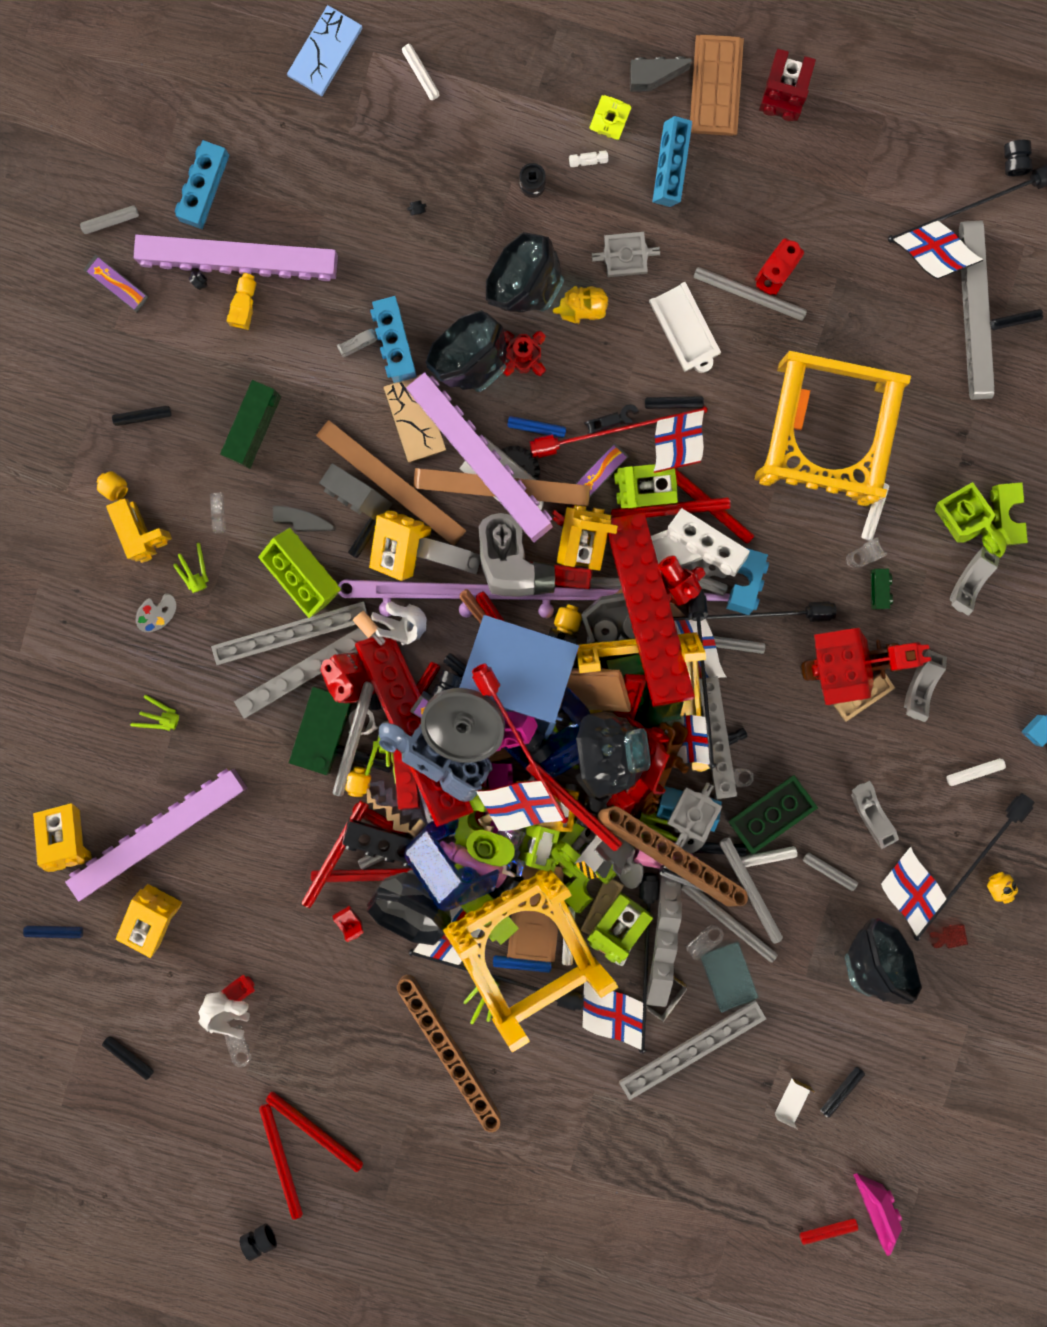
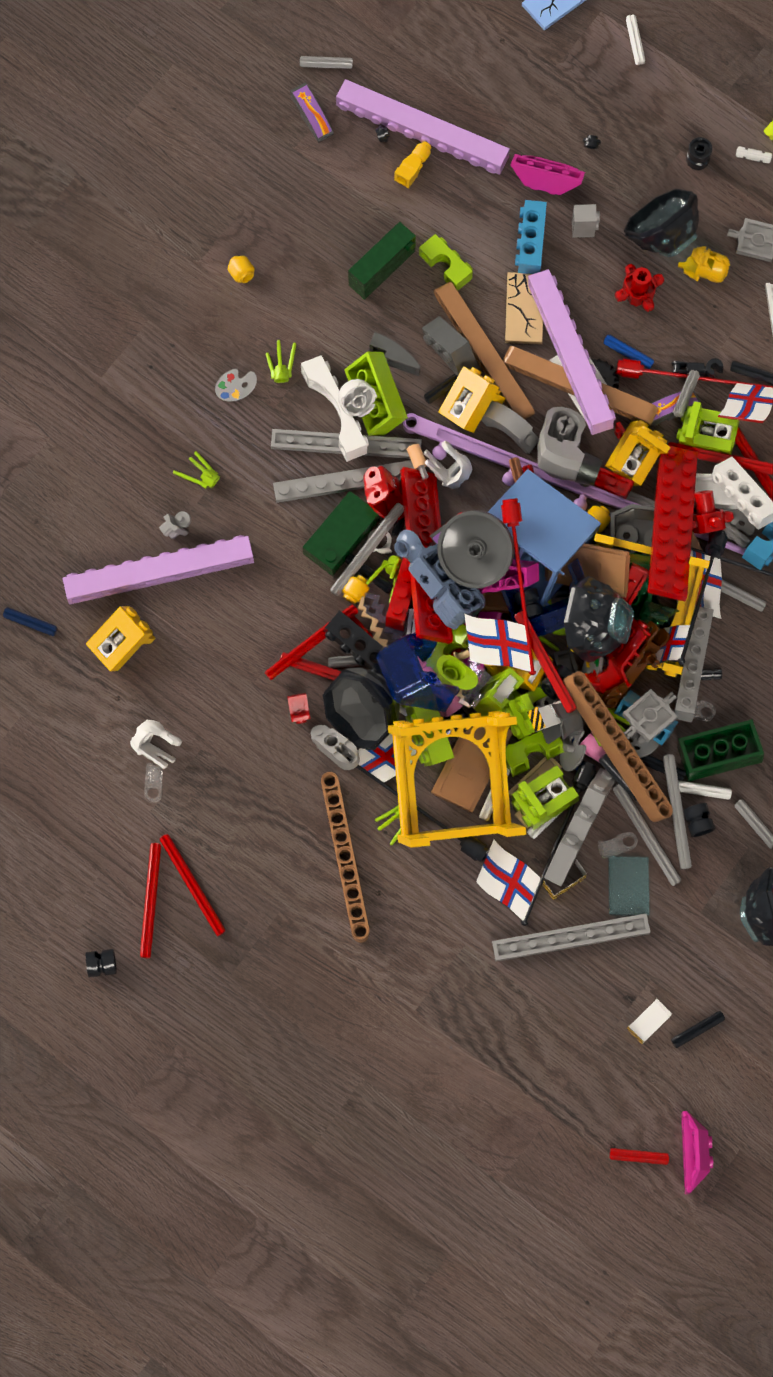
camera: 20 degrees right, 15 degrees down
(59, 845) = (73, 541): yellow brick -> none
(127, 1058) = (49, 756): black axle -> none
(133, 533) = (246, 319): yellow brick -> none
(141, 415) = (289, 223): black axle -> none
(154, 785) = (175, 525): none -> light grey hips
(197, 215) = (402, 83): dark azure brick -> none
(217, 513) = (323, 322): clear piece -> none
(239, 988) = (180, 729): red bracket -> none
(281, 590) = (357, 398): none -> white cylinder
(291, 631) = (318, 377): none -> white arch
(302, 390) = (436, 251): none -> lime arch
(357, 343) = (501, 229): light grey piece -> none
(383, 262) = (546, 174): none -> dark pink wedge
(383, 944) = (324, 737): none -> light grey piece
(442, 302) = (585, 220): none -> light grey brick
(469, 352) = (594, 267): black rock -> none
(521, 964) = (442, 803): blue axle -> none
(611, 455) = (686, 393): none -> light grey axle
(773, 889) = (699, 821): none -> black wheel

